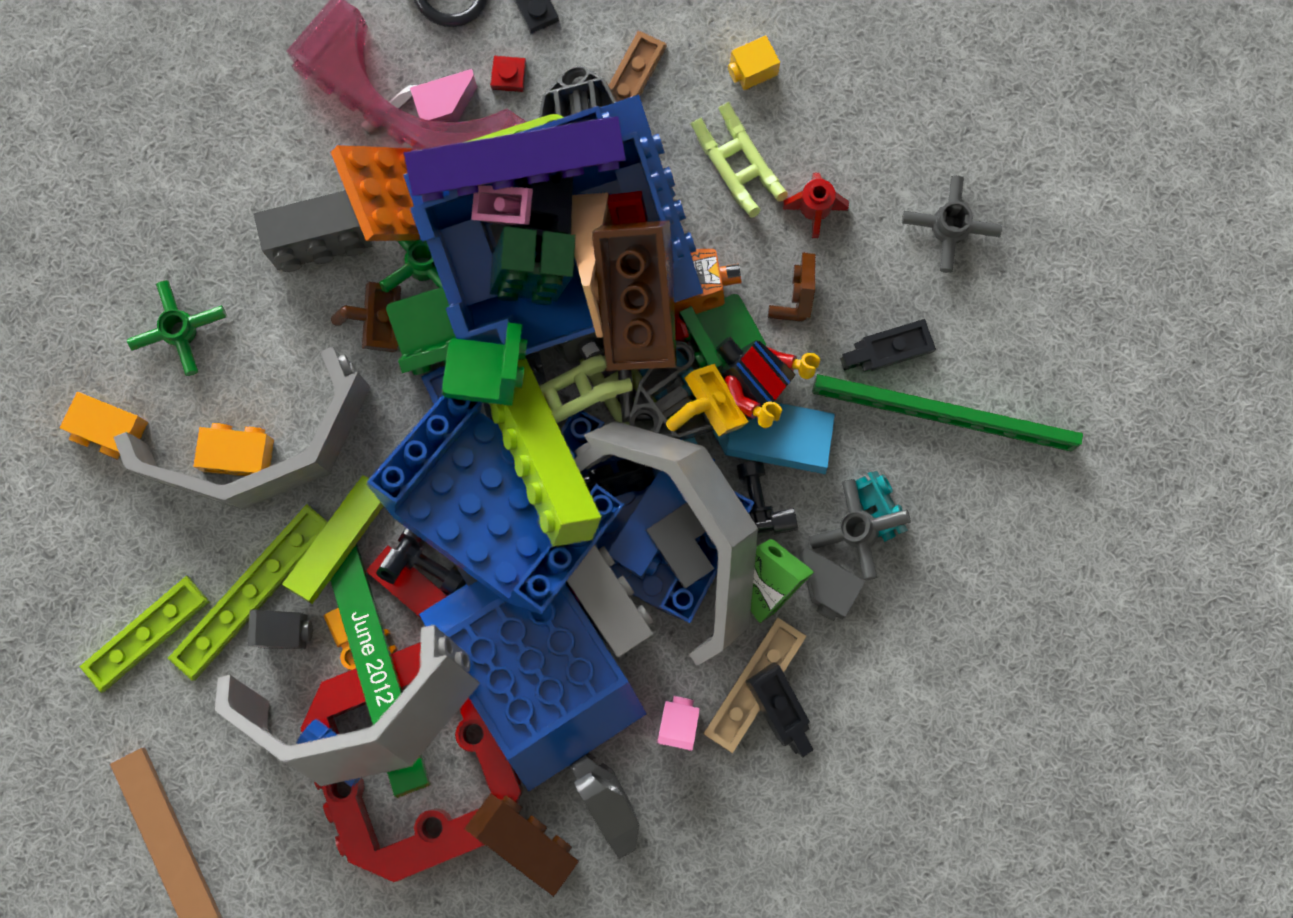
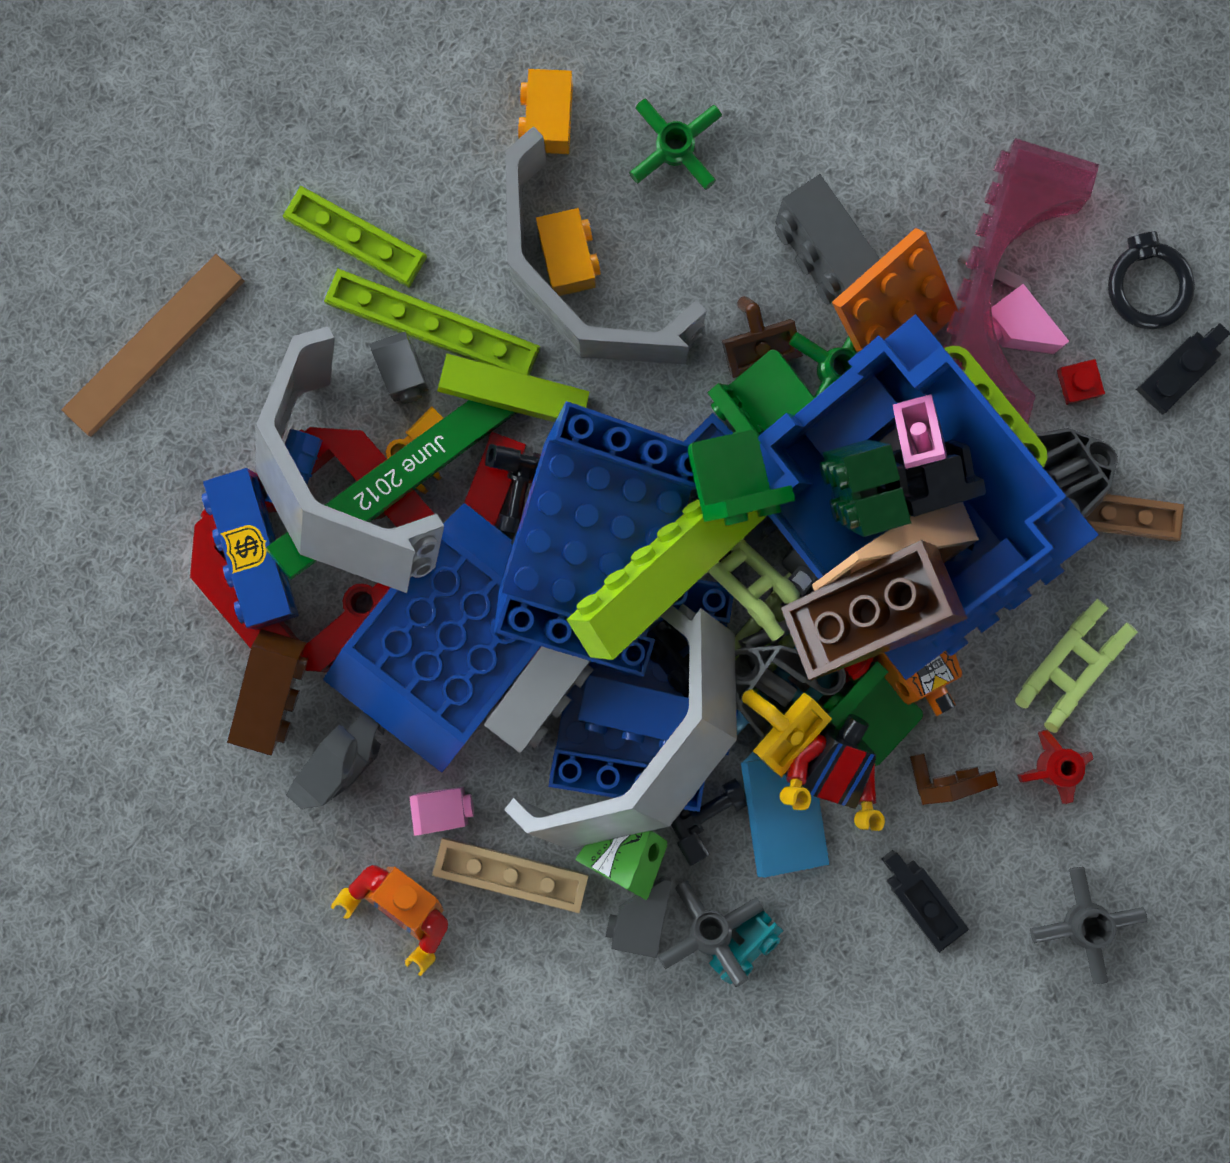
camera: 70 degrees right, 5 degrees up
(384, 816) = (243, 535): none -> blue brick
(515, 157) = (973, 428): dark purple brick -> none
(627, 207) = (967, 567): red plate -> none
(676, 542) = (626, 743): dark grey tile -> none
(748, 785) = (403, 903): none -> torso
(753, 63) = (1193, 644): yellow brick -> none
(781, 708) = (494, 911): black hinge -> none
(947, 413) = (872, 988): green tile -> none

